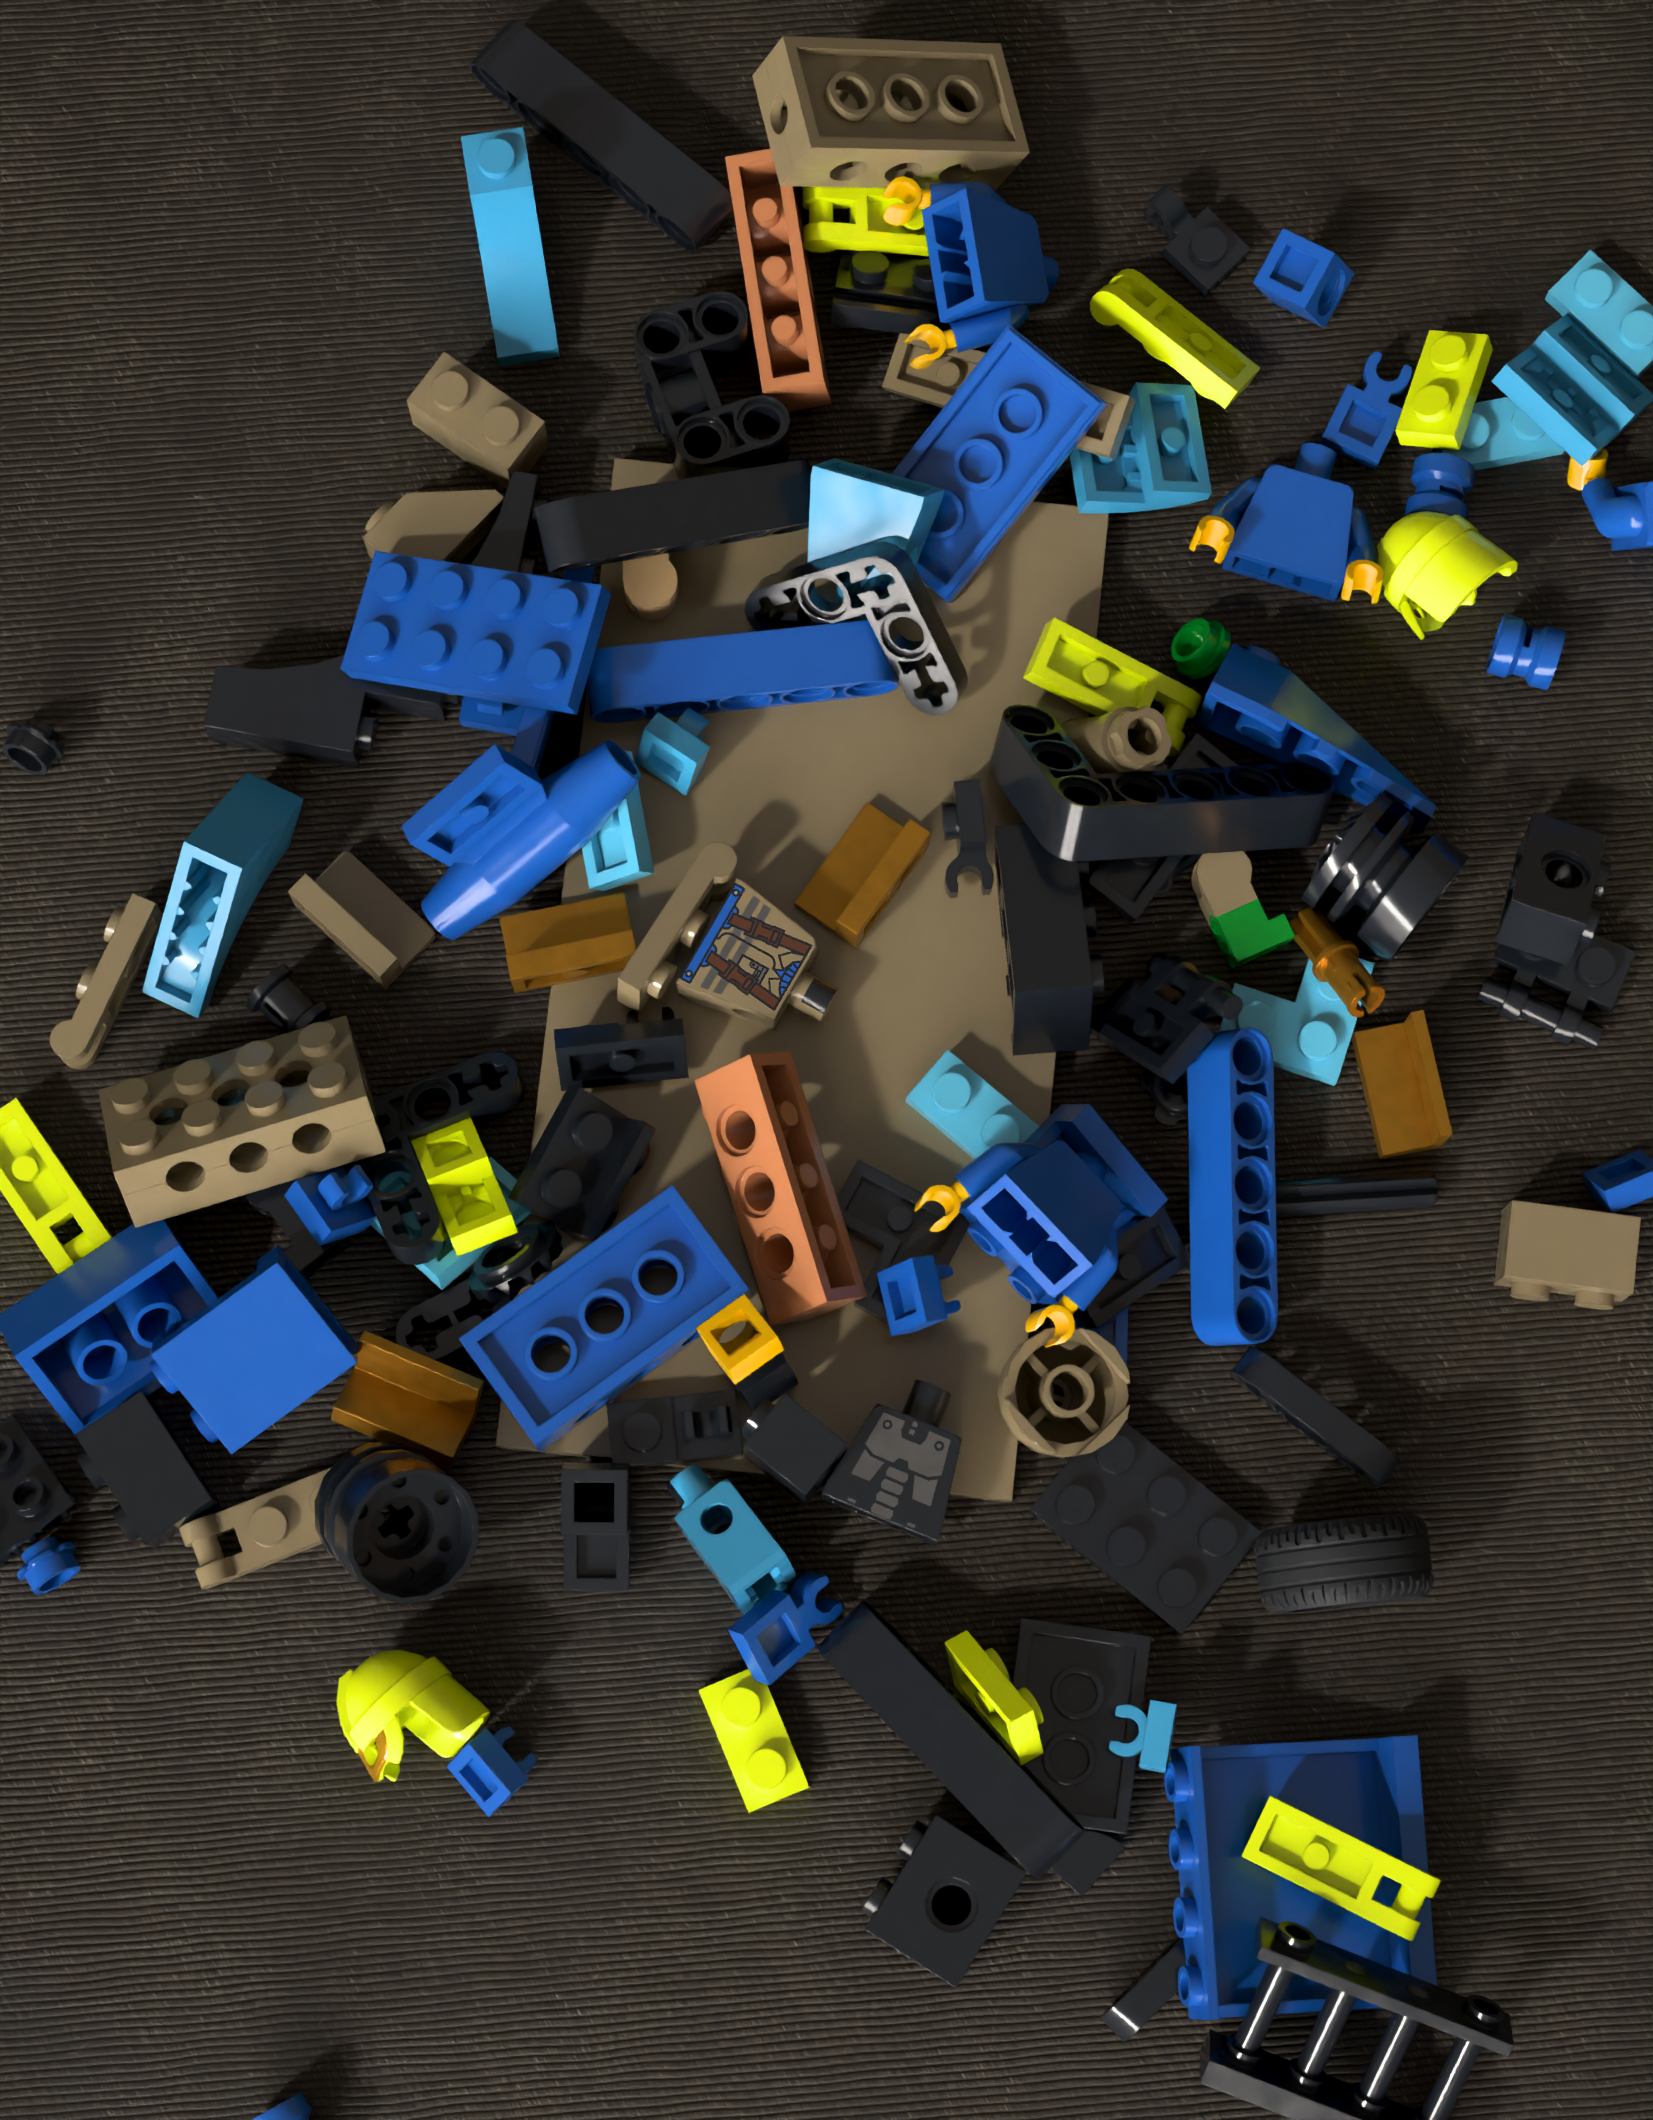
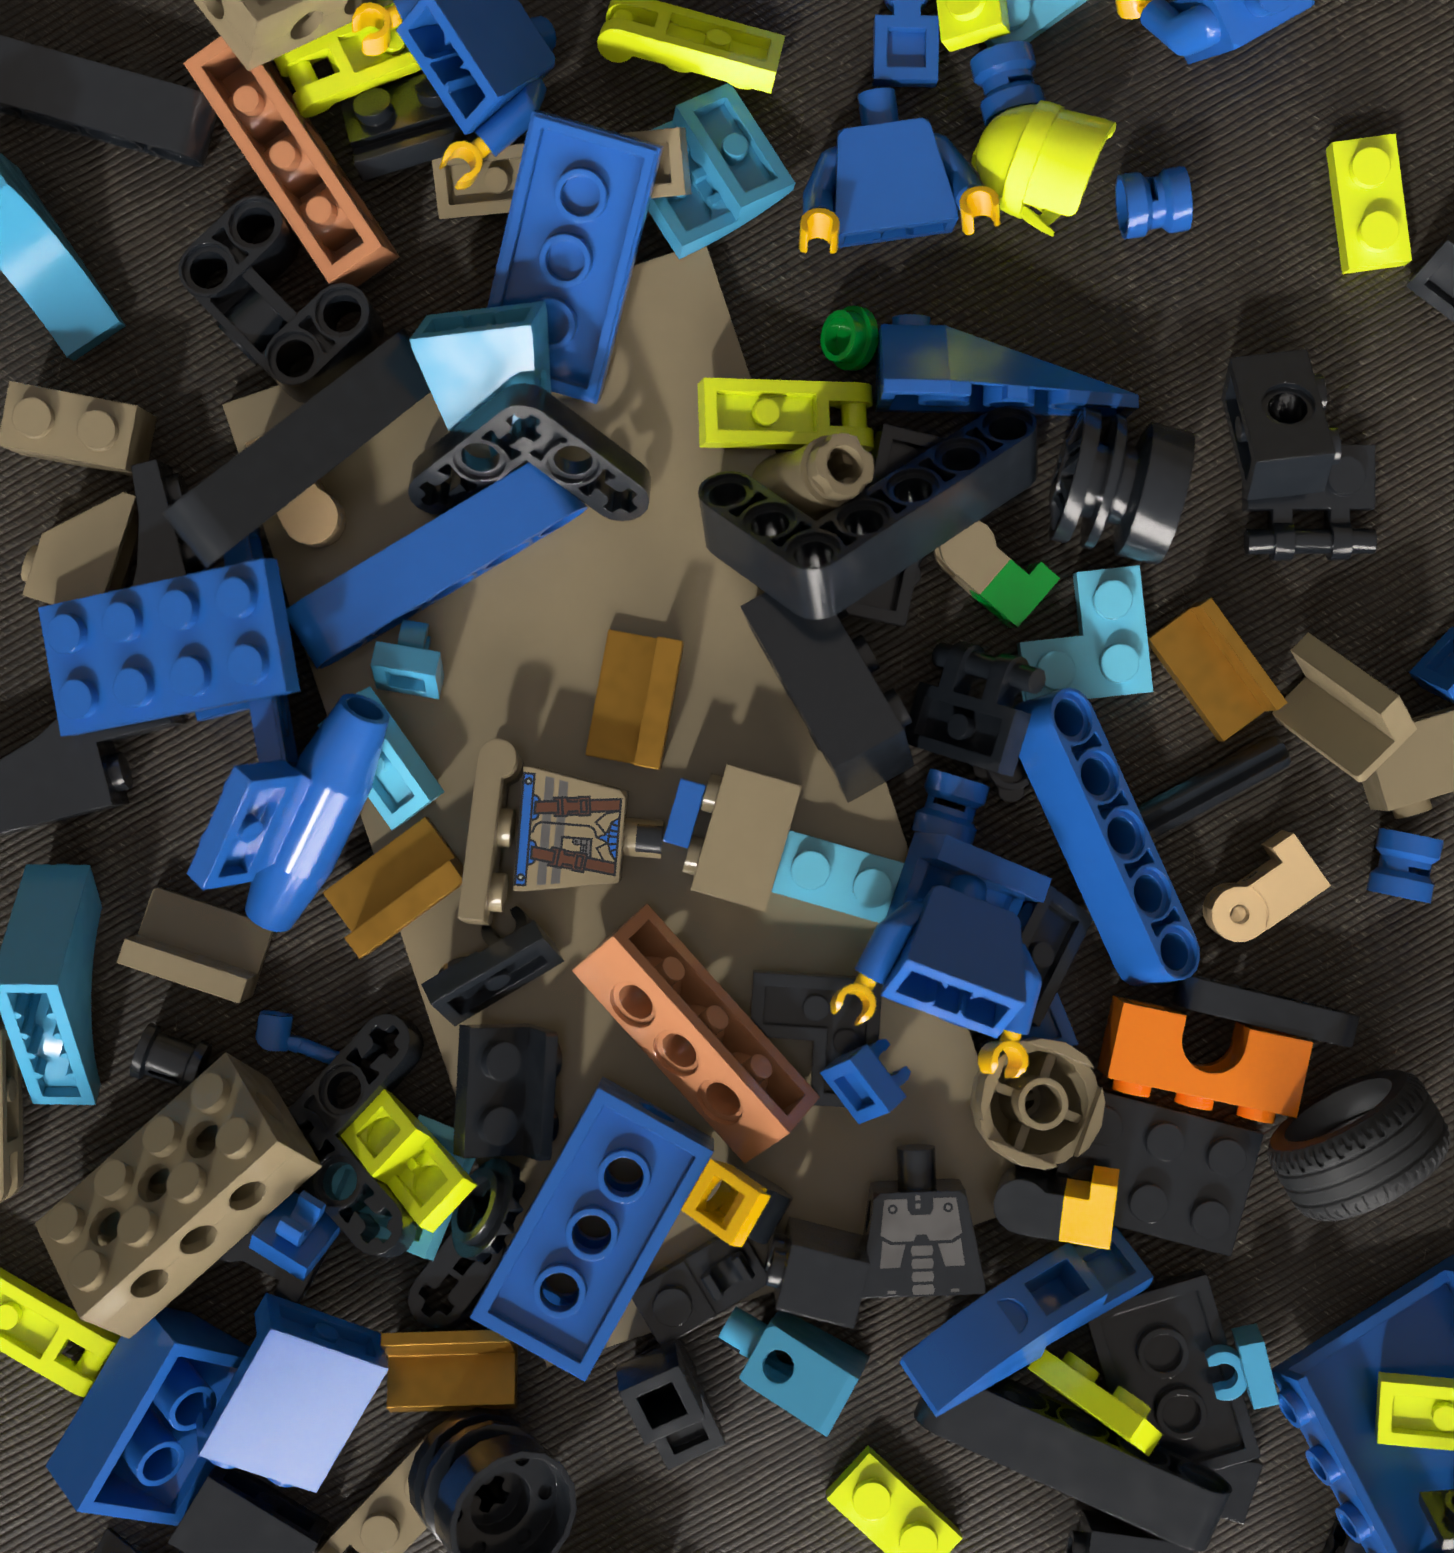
camera: 20 degrees left, 10 degrees up
(392, 1027) = (274, 1034): none -> blue hand
(776, 1628) = (874, 1417): blue plate -> none
(861, 990) = (684, 813): none -> blue tile
(904, 1034) = (743, 836): none -> dark tan brick
(954, 1581) = (1021, 1318): none -> blue slope
(965, 822) = (708, 611): black plate -> none
(1022, 1490) = (1058, 1206): none -> leg
(1109, 1092) = (946, 820): none -> blue wheel
(1277, 1475) = (1258, 1072): none -> orange arch
(1336, 962) = (1109, 586): pearl gold axle -> none
(1344, 1315) = (1267, 894): none -> tan leg
(1501, 1342) = (1405, 865): none -> blue wheel
(1505, 1171) = (1343, 711): none -> dark tan panel

